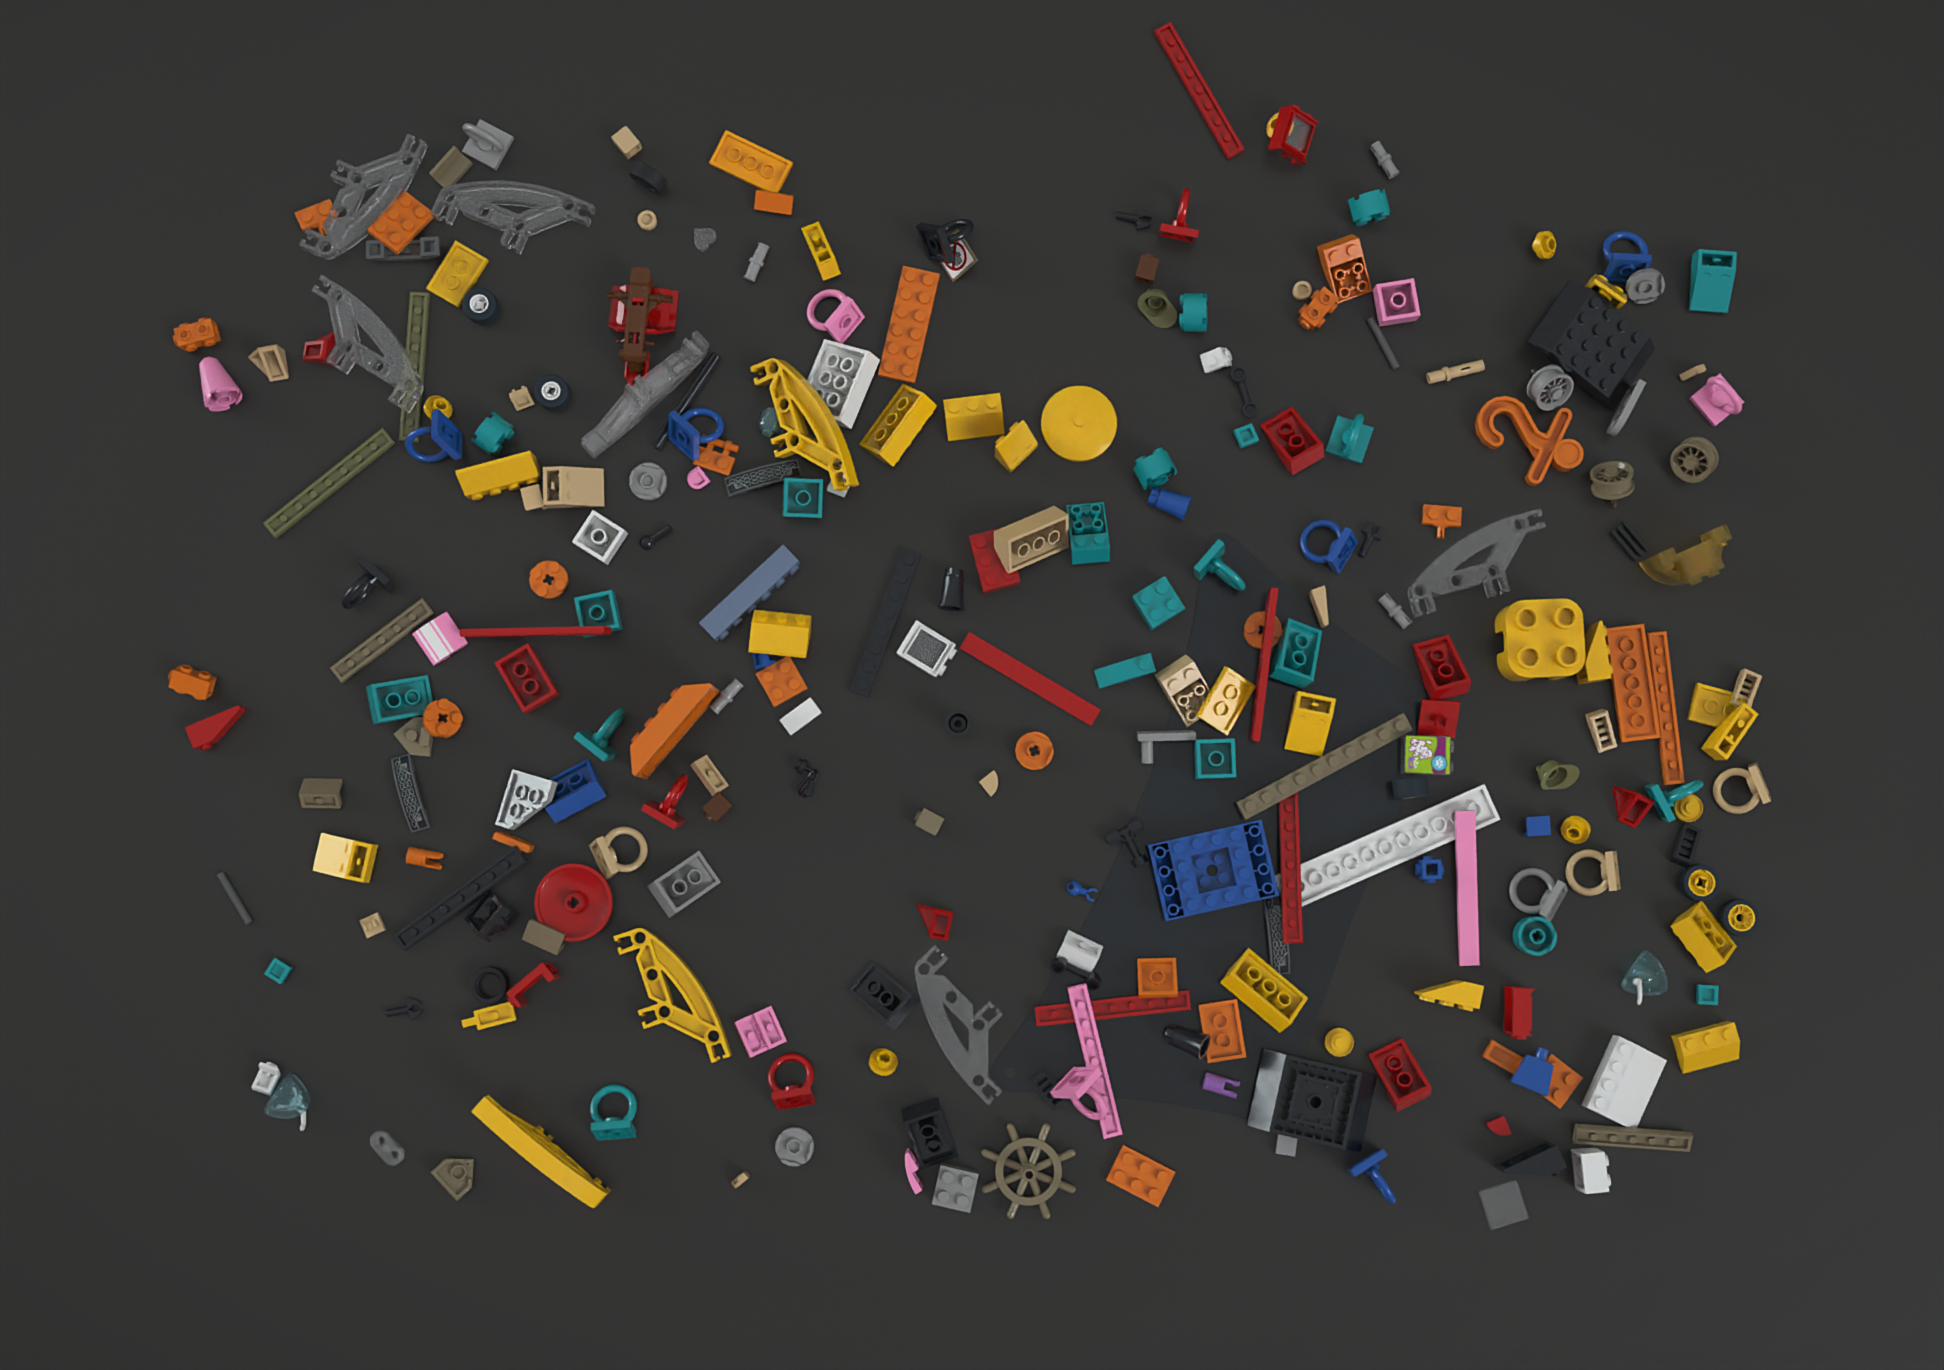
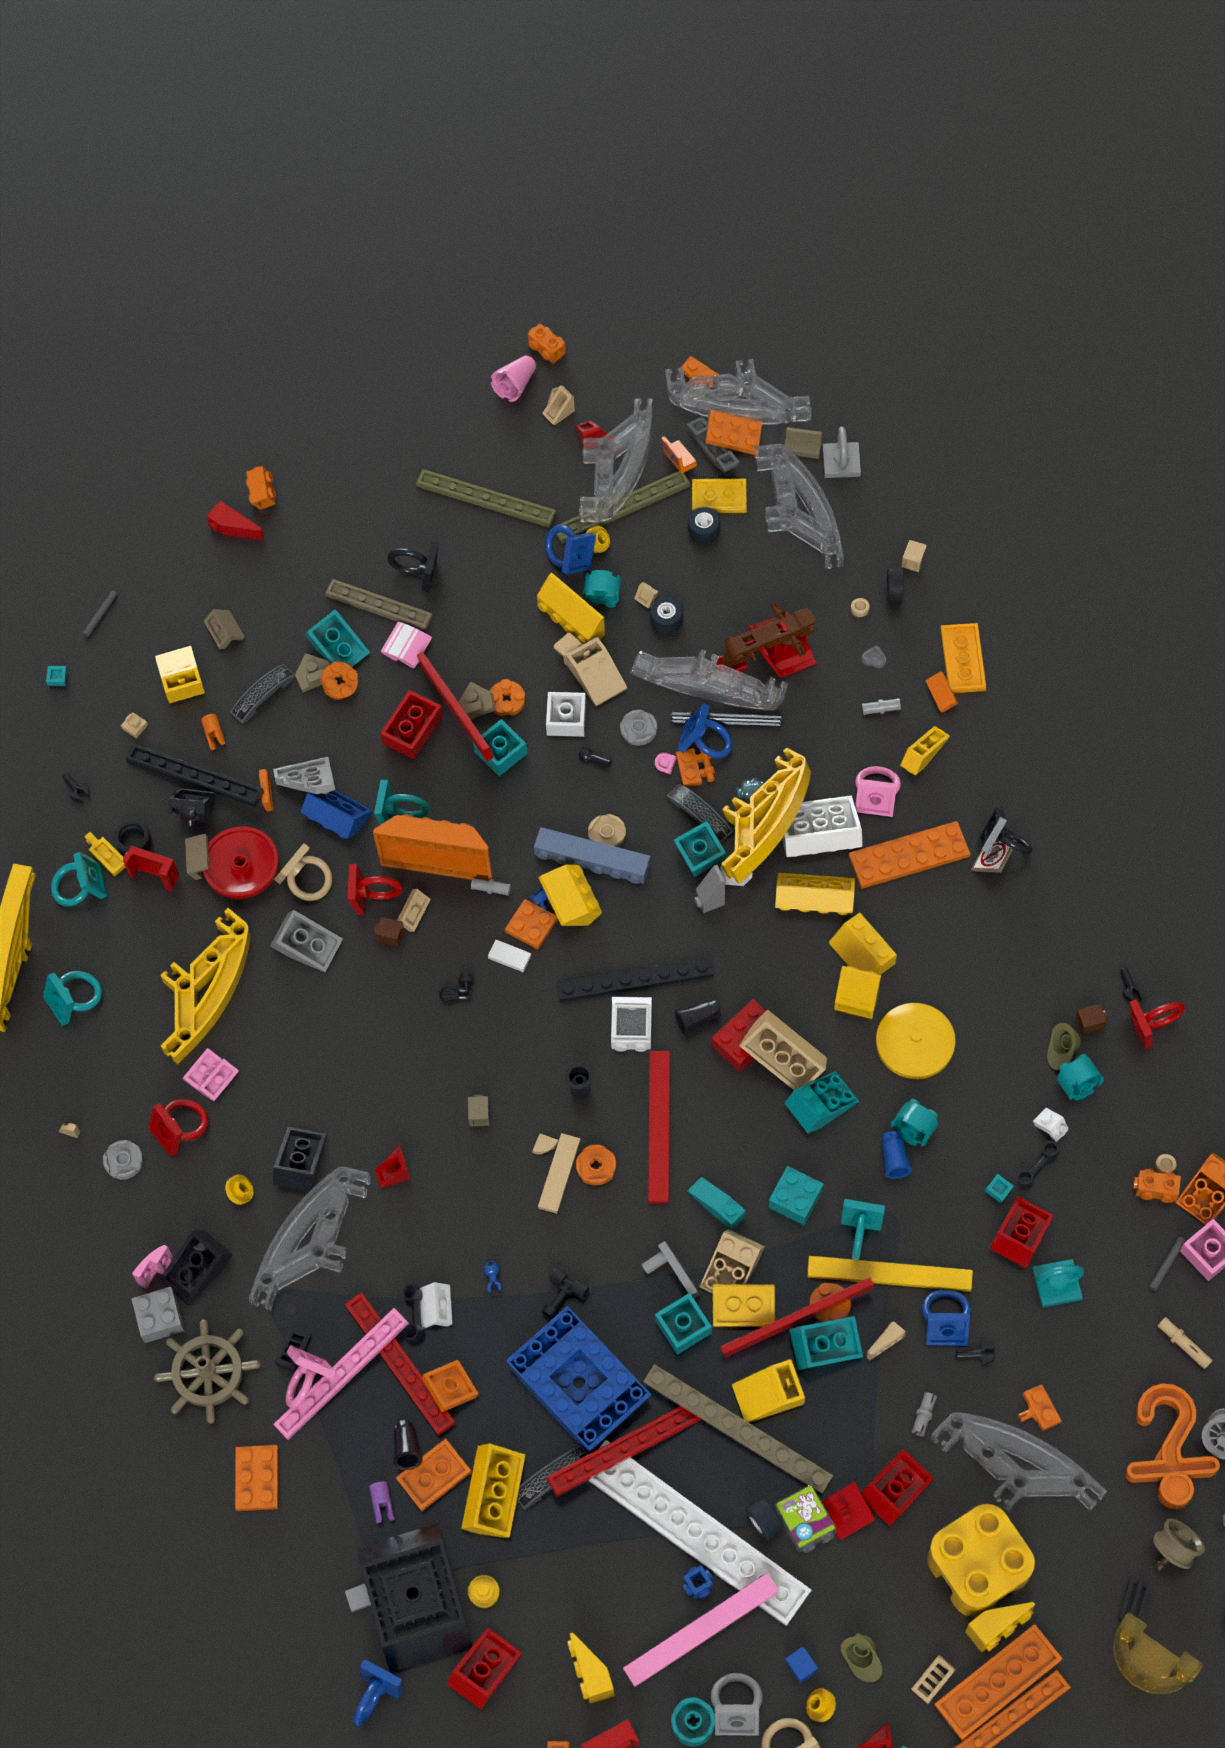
camera: 65 degrees right, 20 degrees down
(394, 285) = (678, 455): none -> panel
(506, 1043) = (89, 876): none -> teal tile
(538, 609) = (477, 701): none -> dark tan plate
(732, 566) = (607, 830): none -> tan tile
(848, 512) = (711, 891): none -> light grey slope
(1022, 785) = (559, 1173): none -> tan tile
(1265, 567) = (890, 1273): none -> yellow tile

